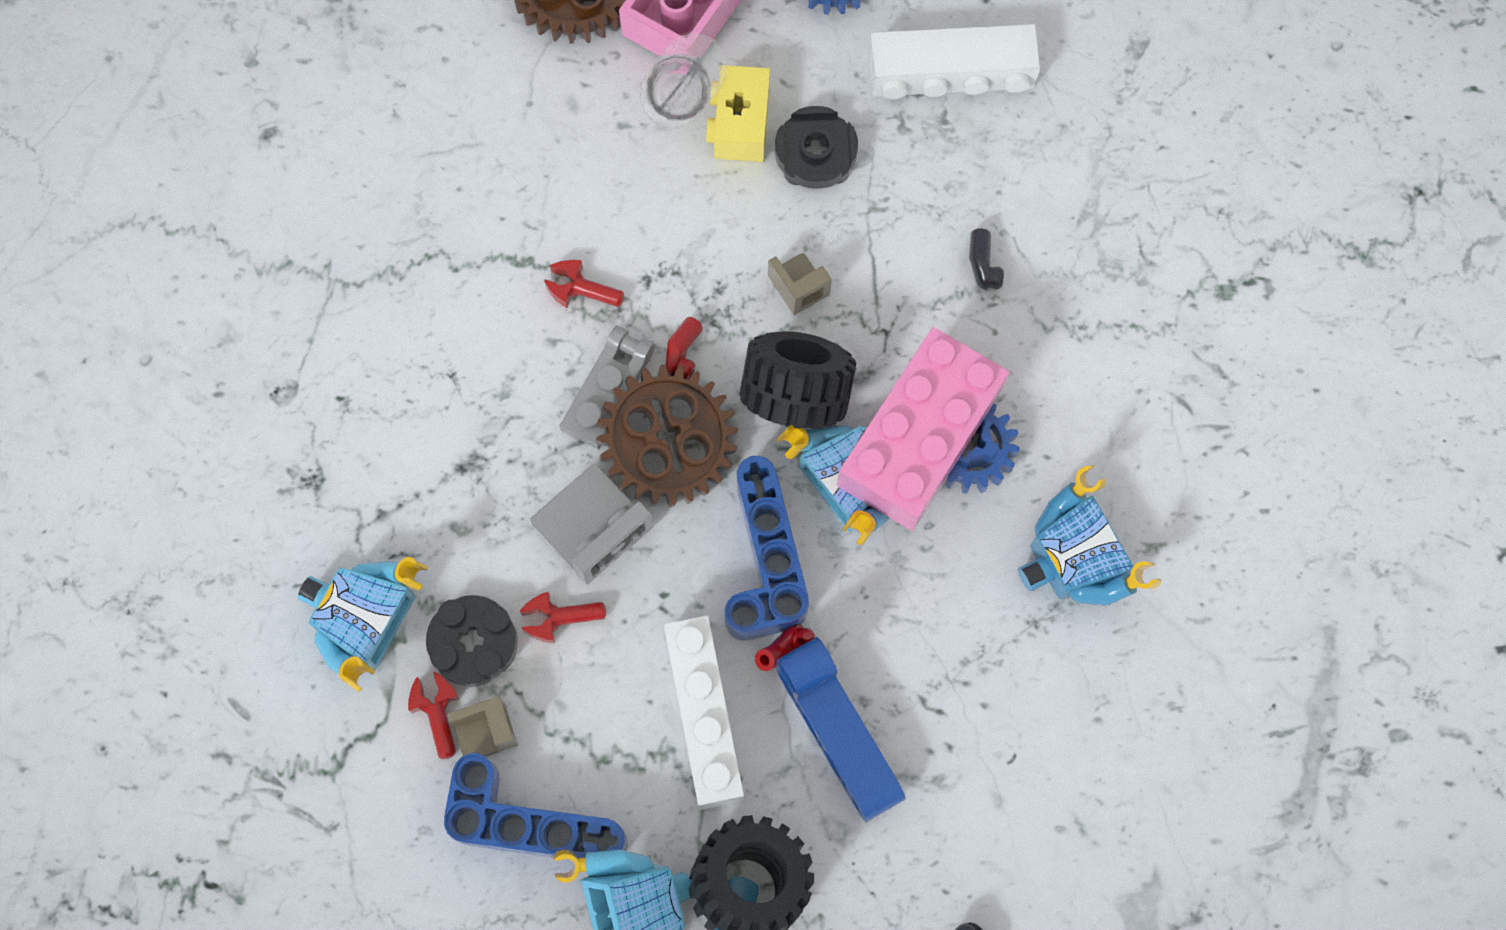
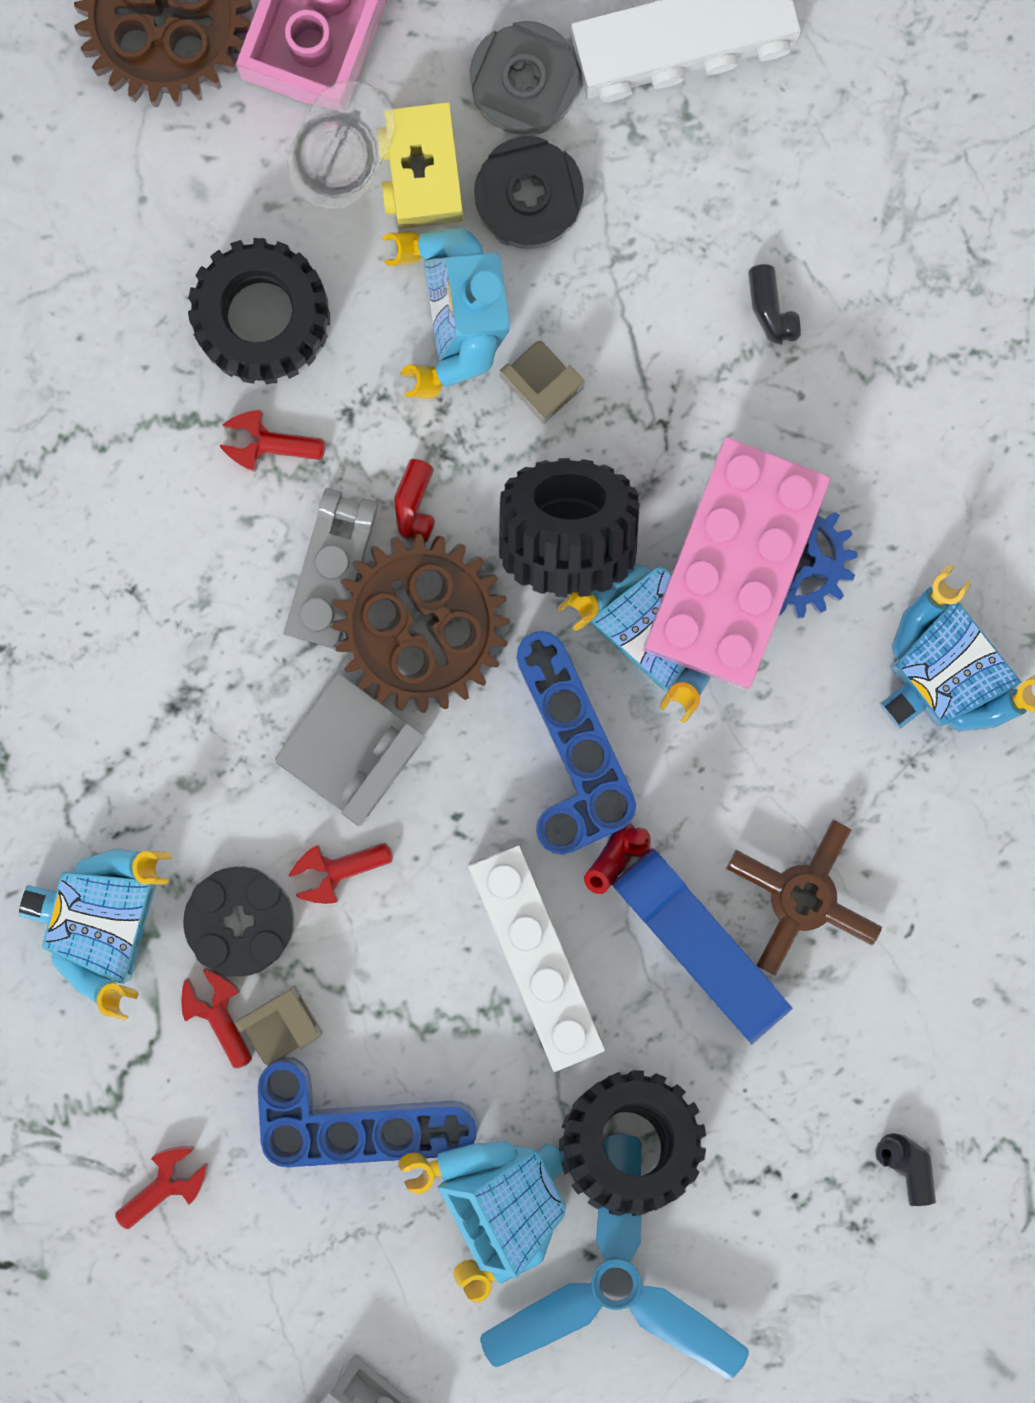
camera: 10 degrees left, 15 degrees up
(357, 844) = (162, 1187): none -> red bar
(588, 158) = (234, 272): none -> black tyre
(751, 214) = (464, 302): none -> medium azure torso
(828, 48) = (510, 49): none -> dark grey plate
(948, 710) = (823, 889): none -> reddish brown bar

